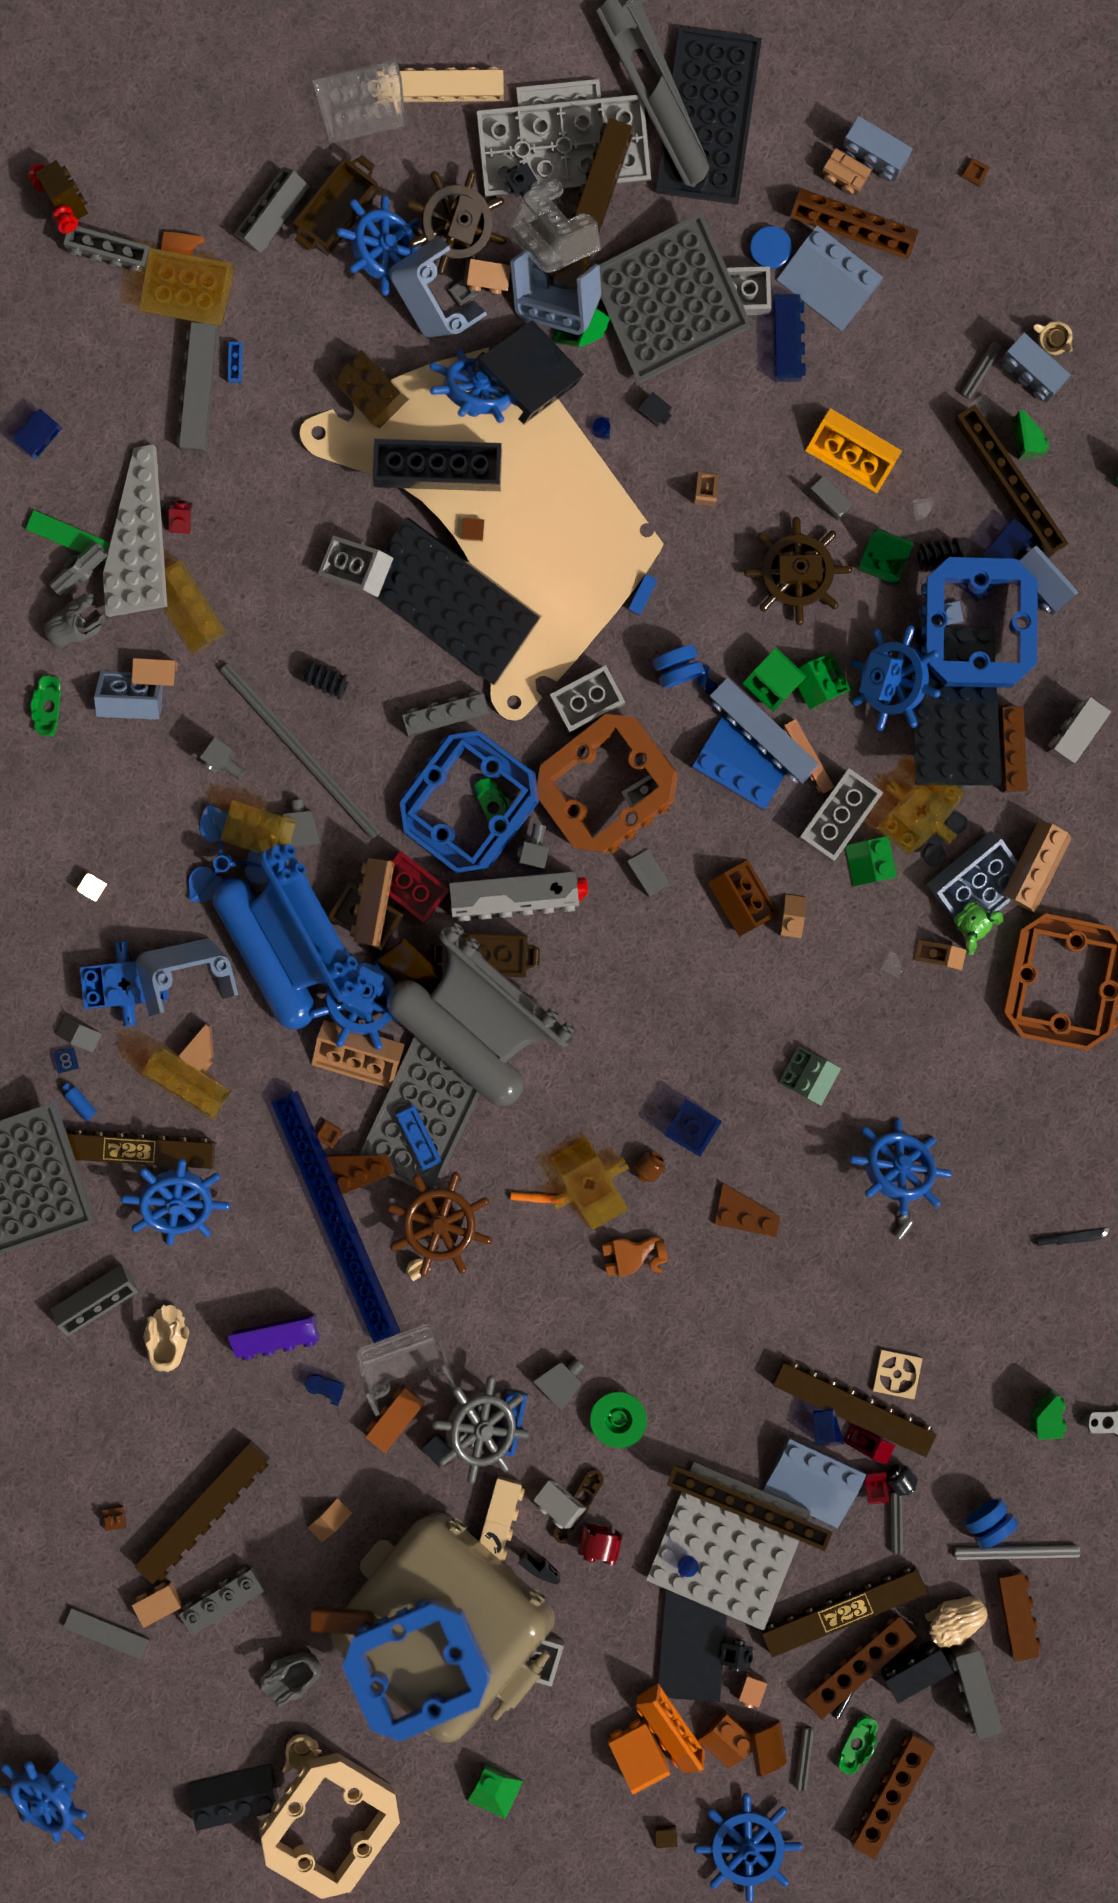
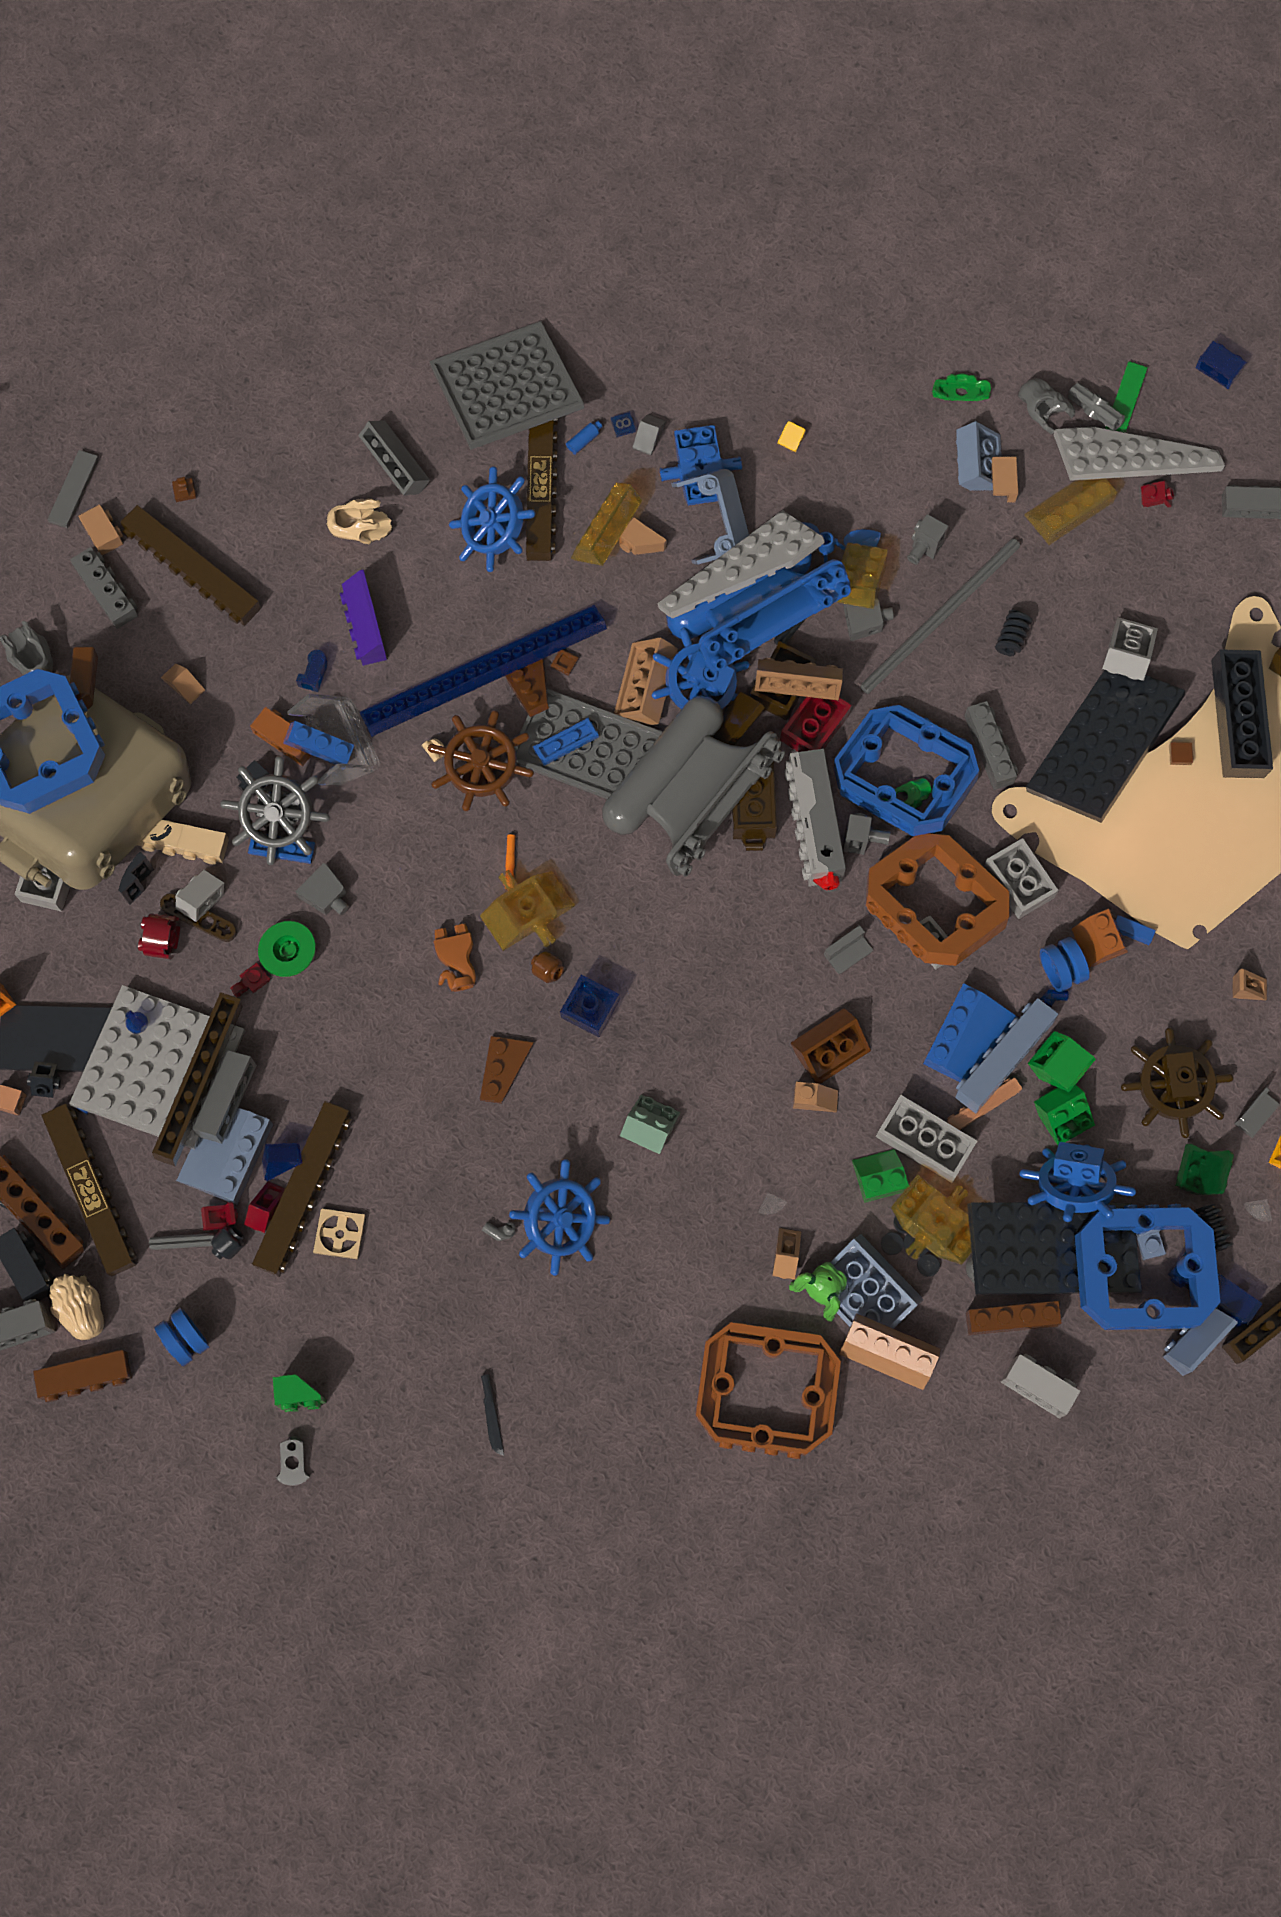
camera: 85 degrees right, 15 degrees down
(233, 926) = (772, 546): none -> light grey wing
(412, 1385) = (318, 743): none -> blue brick
(644, 1453) = (252, 979): none -> dark red plate
(652, 628) = (1099, 938): none -> dark orange slope
(766, 1482) = (224, 1096): none -> dark grey brick
(1017, 1552) = (150, 1373): light grey axle -> none

